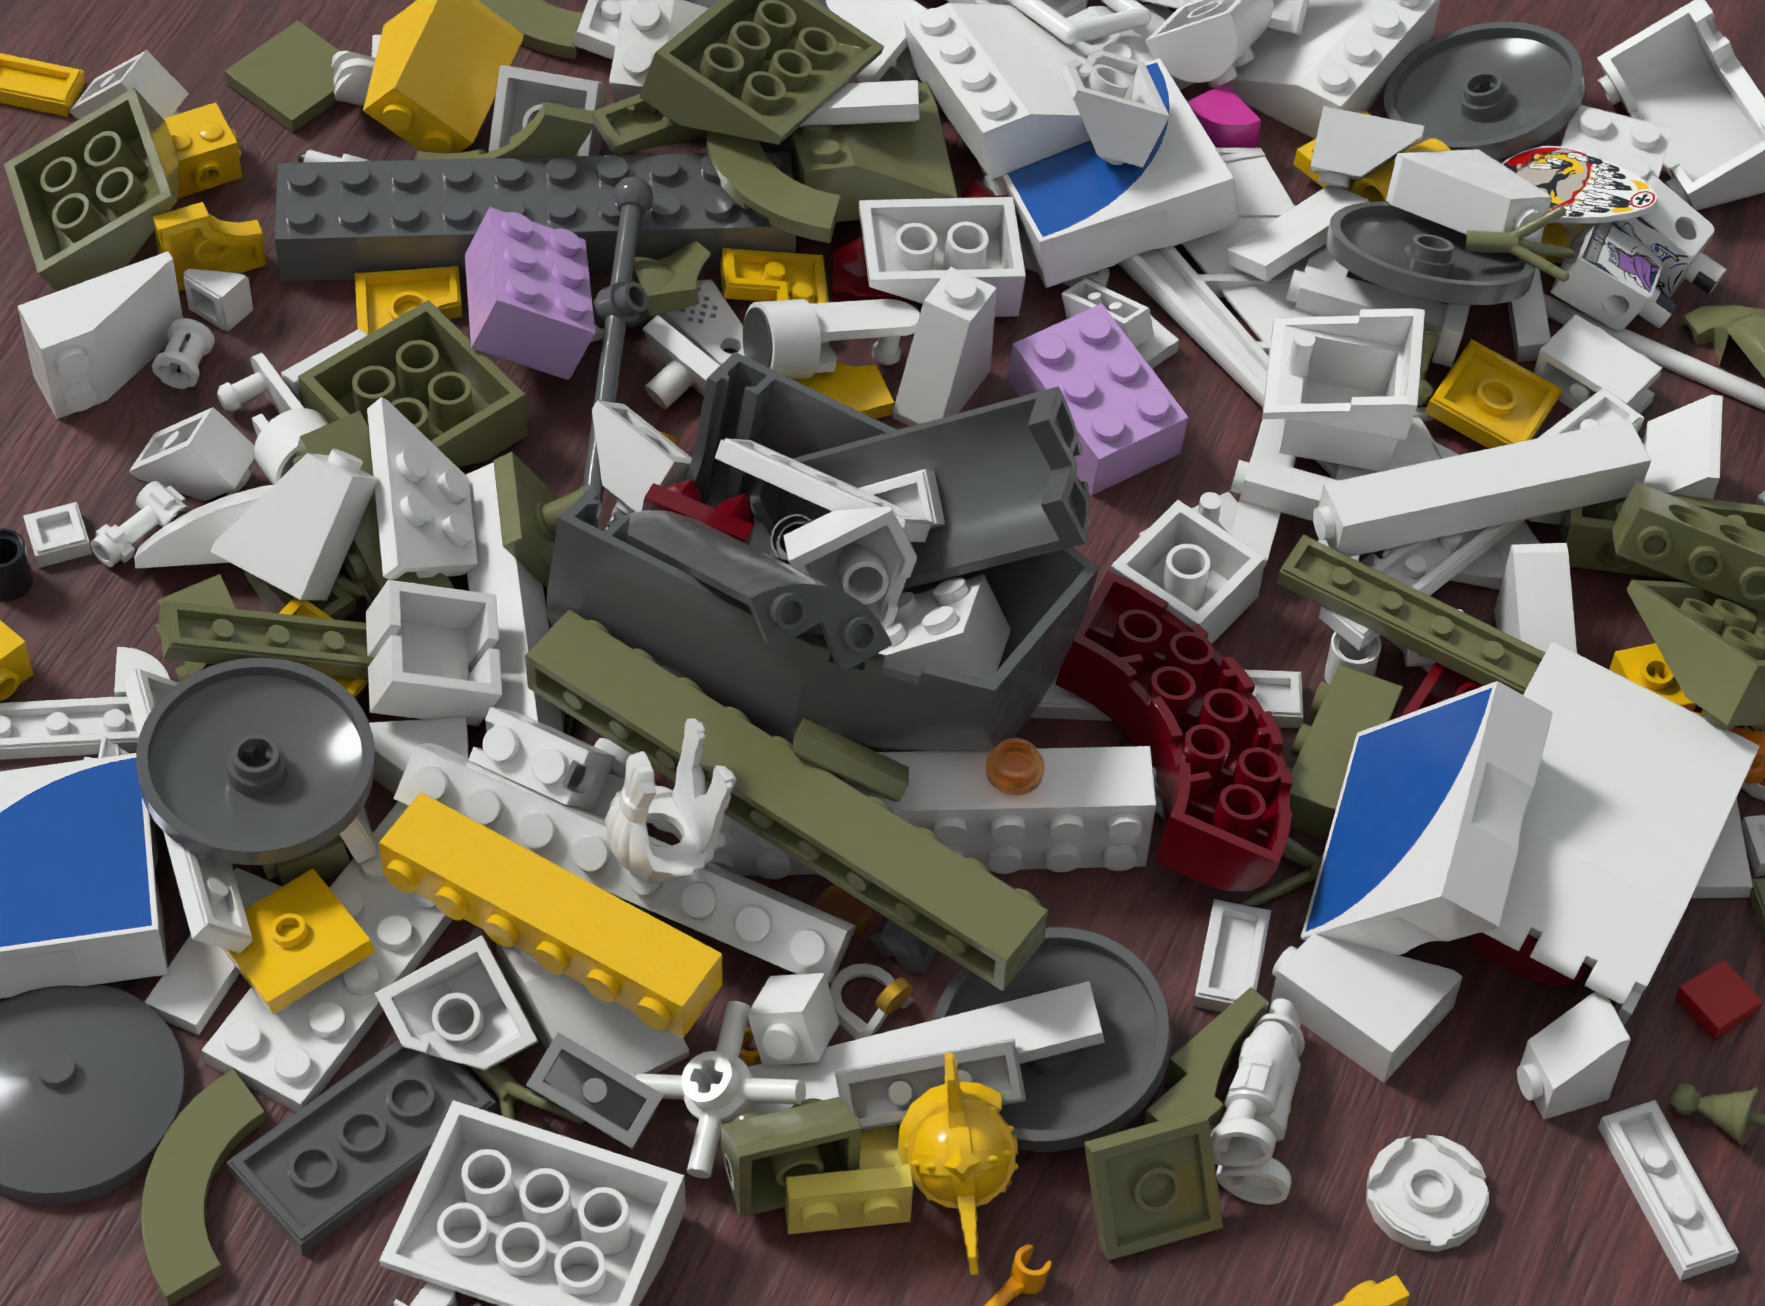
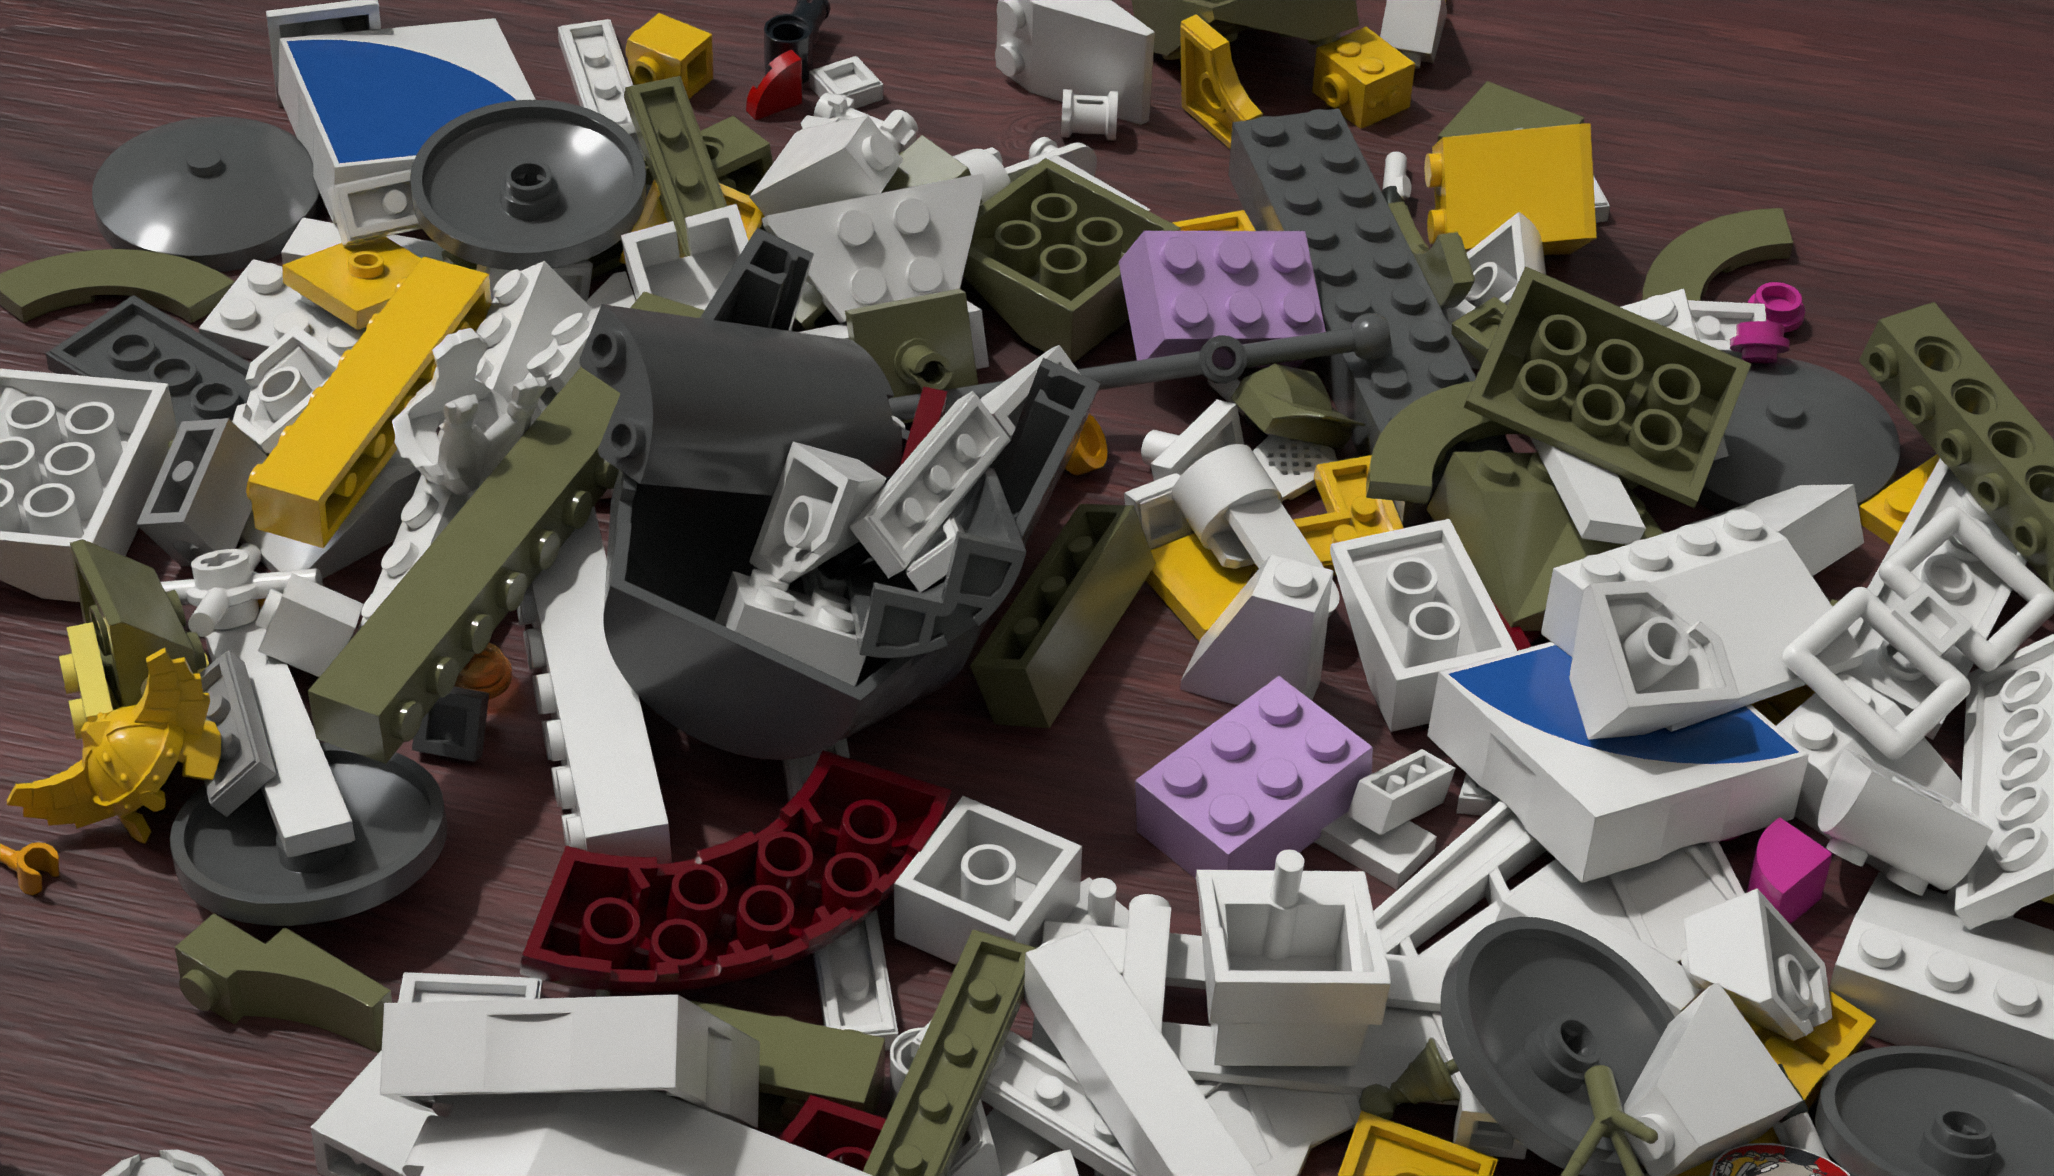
camera: 80 degrees right, 10 degrees down
(56, 584) = (778, 89): none -> red tile
(197, 457) = (955, 126): white slope -> none
(218, 296) = (1172, 124): white slope -> none
(850, 760) = (566, 551): olive tile -> none
(1015, 767) = (601, 698): clear orange plate -> none
(1153, 1184) = (120, 930): olive tile -> none
(1260, 1108) = (259, 1027): white piece -> none

